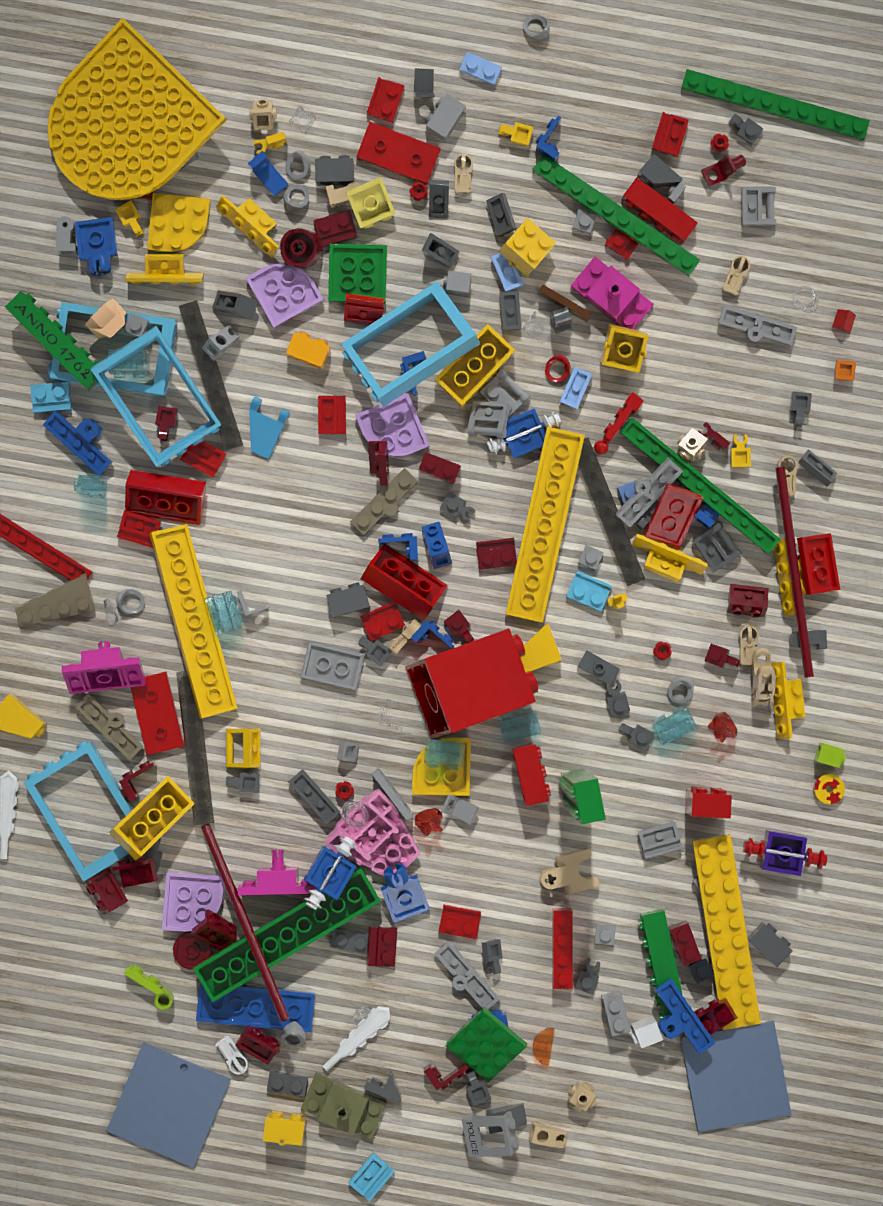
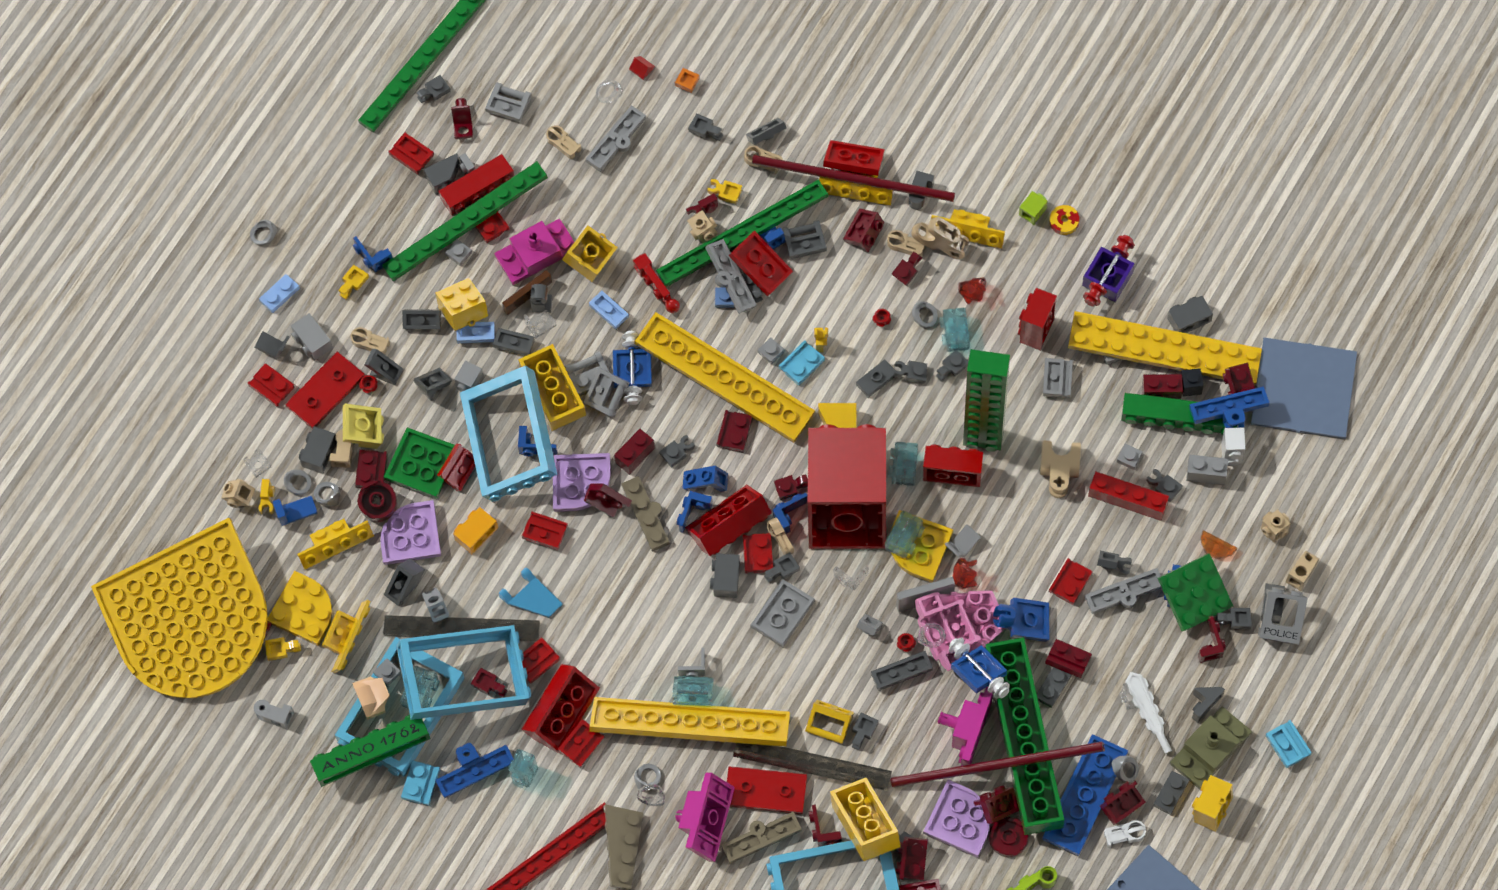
camera: 65 degrees left, 20 degrees down
(96, 244) = (292, 687): blue plate -> none
(554, 359) = (586, 311): red piece -> none
(606, 510) = (744, 322): clear smoke plate -> none
(667, 561) = (799, 284): yellow bracket -> none
(719, 147) = (437, 119): red plate -> none

